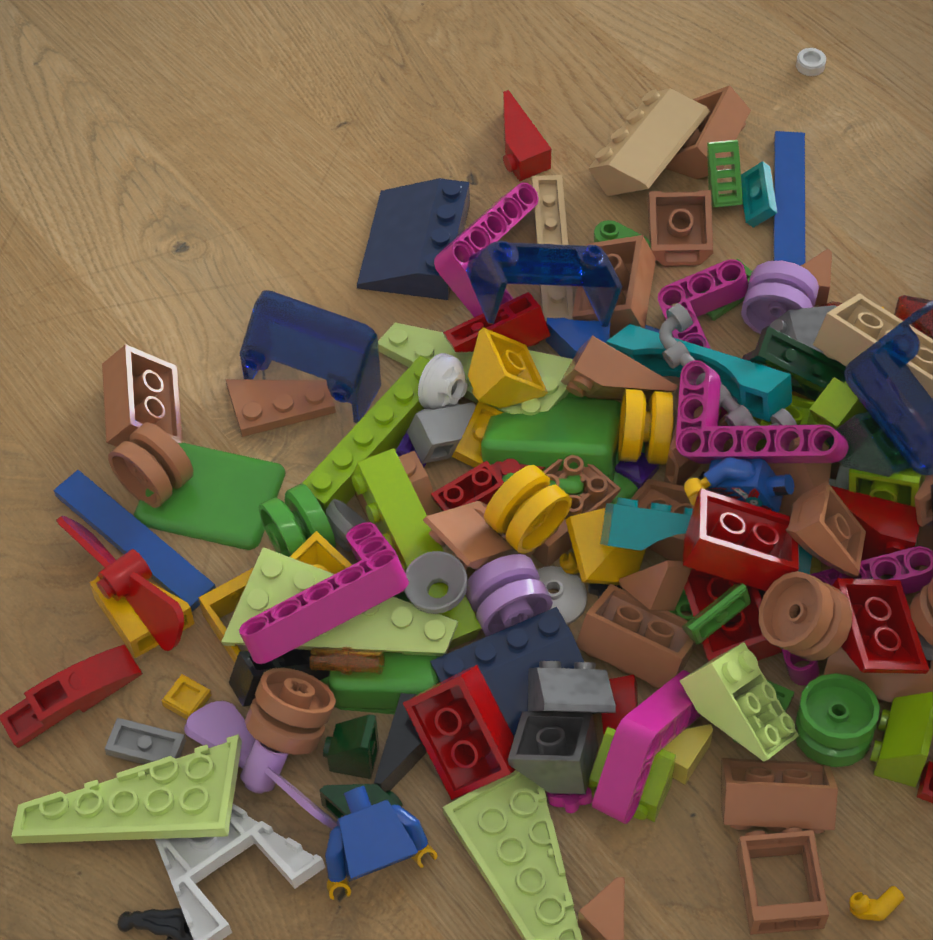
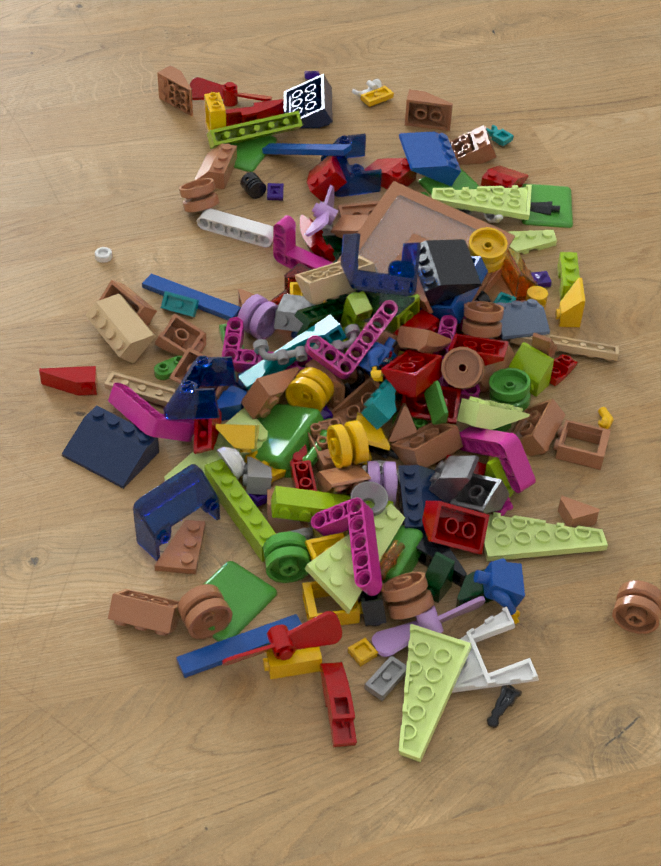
camera: 70 degrees left, 10 degrees down
(728, 199) = (166, 310): bright green slope -> none

